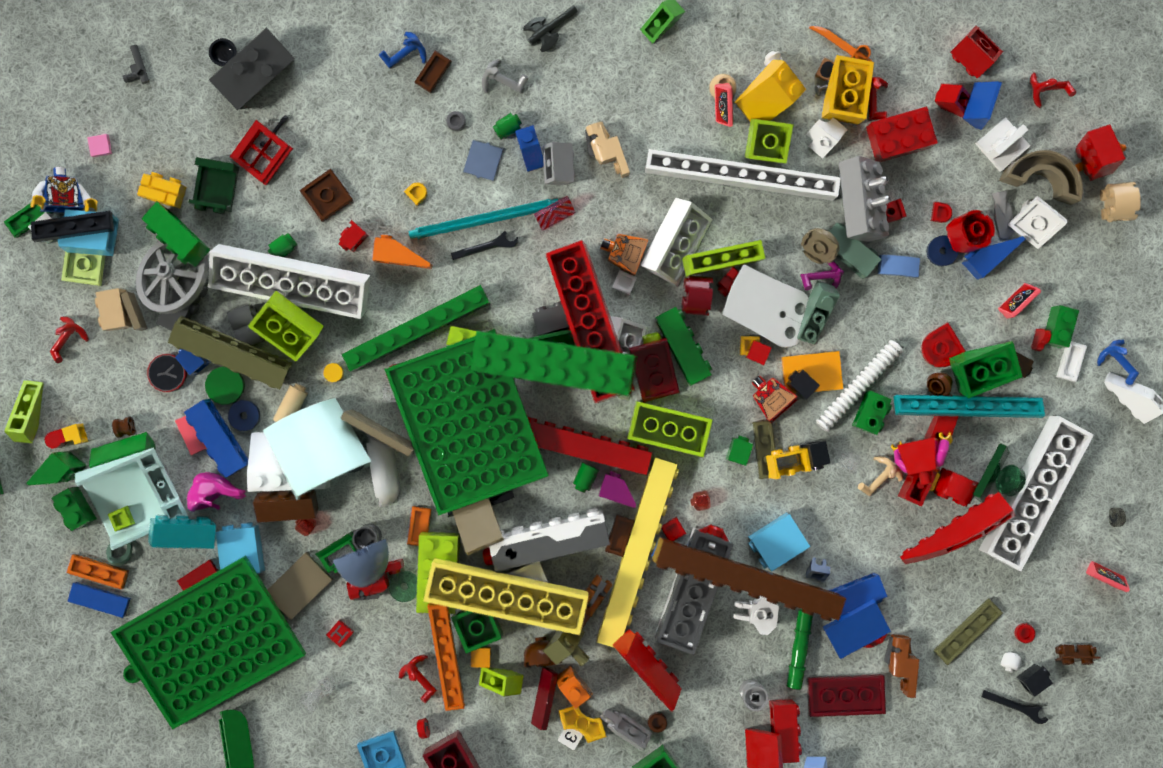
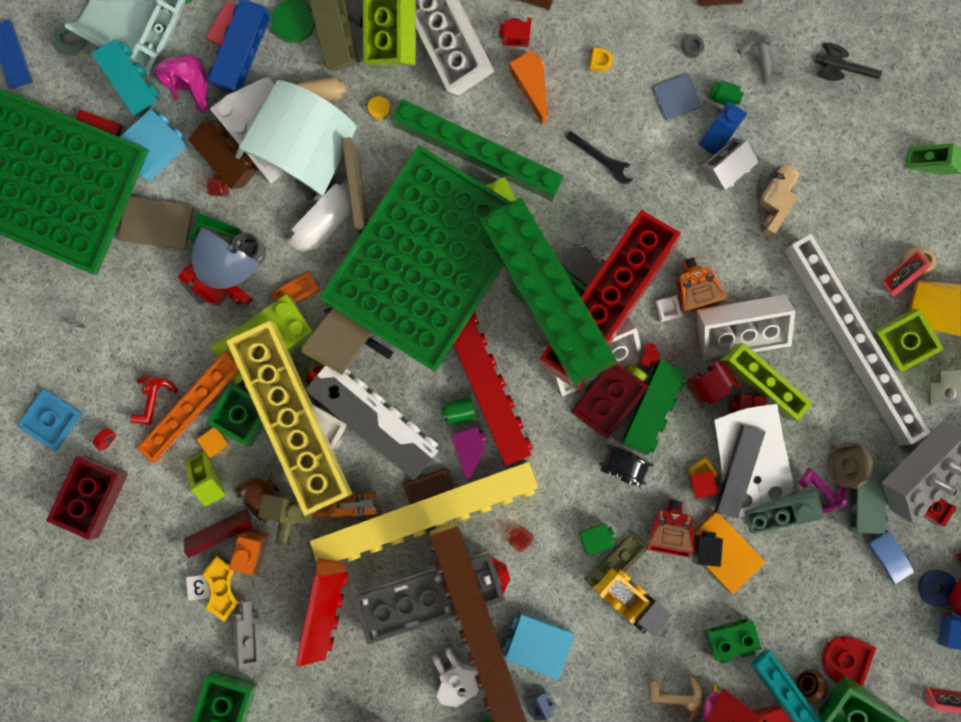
camera: 55 degrees right, 5 degrees down
(97, 571) = (36, 34): orange tile -> none
(121, 518) = (101, 18): lime tile -> none
(236, 411) = (276, 48): dark blue piece -> none
(340, 633) = (139, 293): red tile -> none
(395, 586) = (218, 316): clear green piece -> none
(480, 219) = (625, 136): teal piece -> none
(554, 213) = (681, 195): clear pink tile -> none
(647, 321) = (650, 356): none -> red plate
(657, 722) = (275, 661): reddish brown tile -> none
(669, 429) = (566, 454): lime brick -> none
(673, 529) = (473, 533): red tile -> none
(706, 395) = (625, 464): none -> black wheel
(768, 322) = (739, 471): none -> black tile
(859, 385) = (747, 607): white piece -> none

